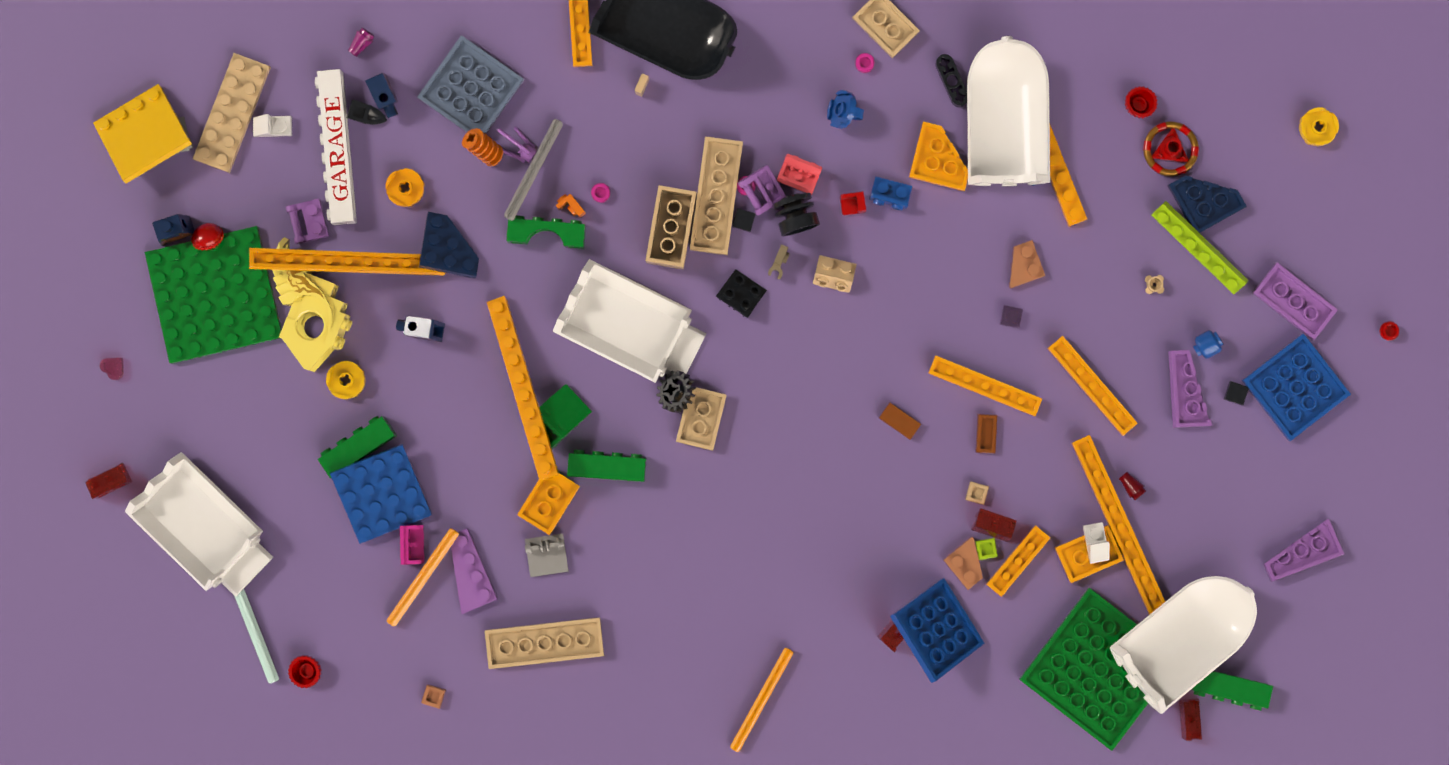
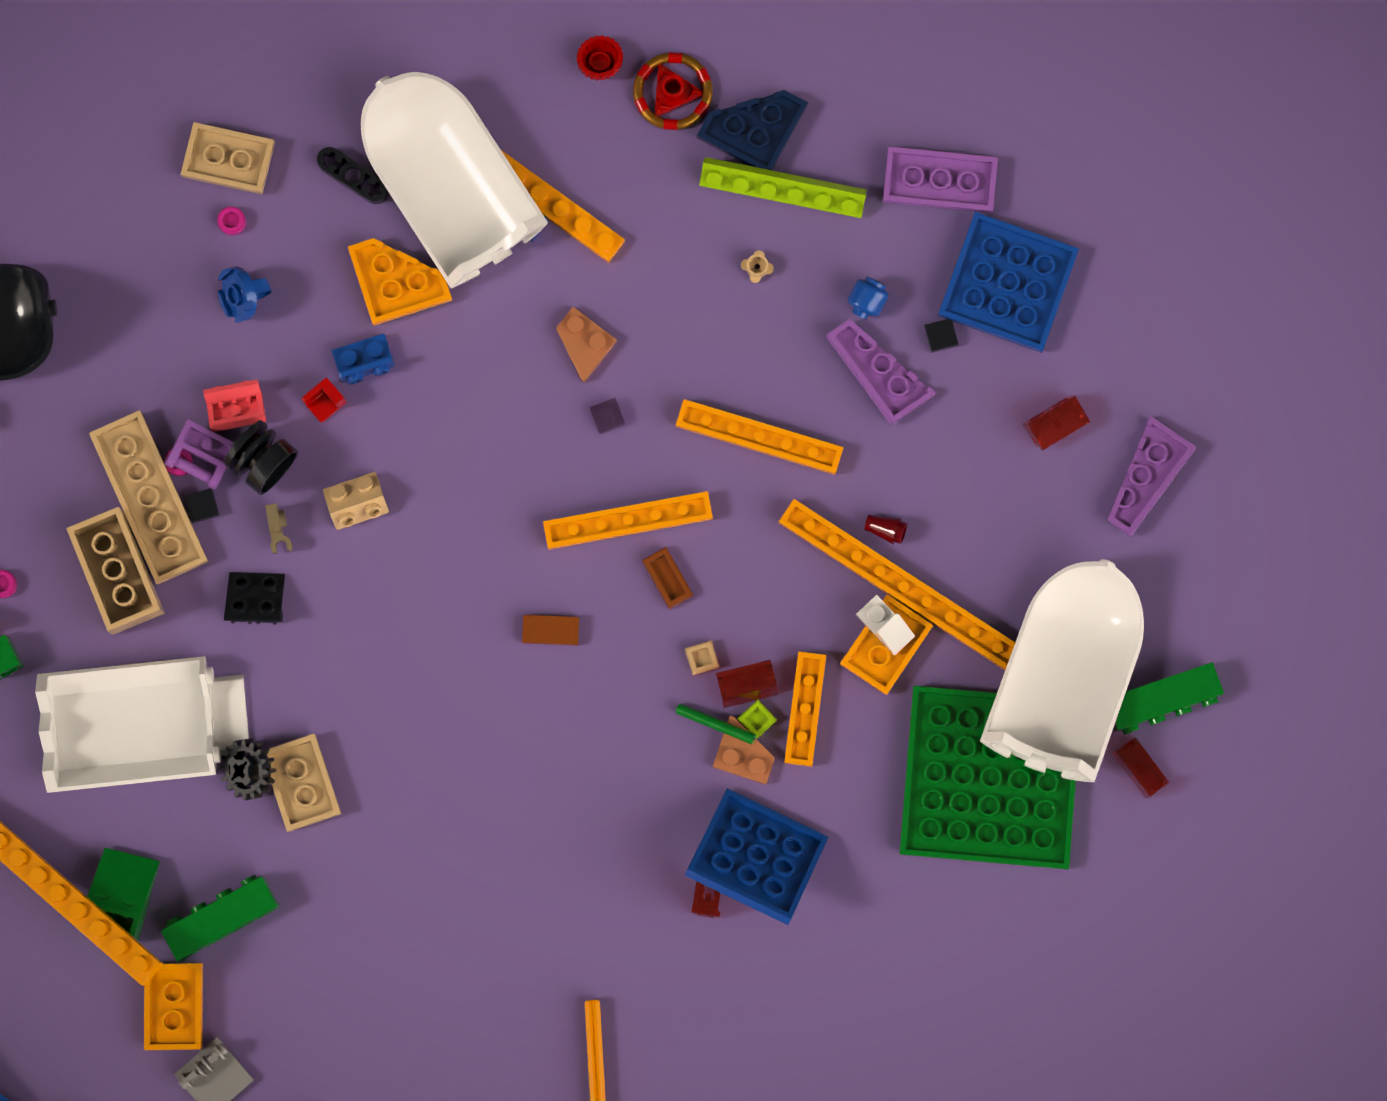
camera: 30 degrees left, 5 degrees down
(961, 537) = (715, 724): none -> green bar
(1271, 487) = (1056, 422): none -> clear red hinge
(1389, 330) = (1077, 143): red plate -> none

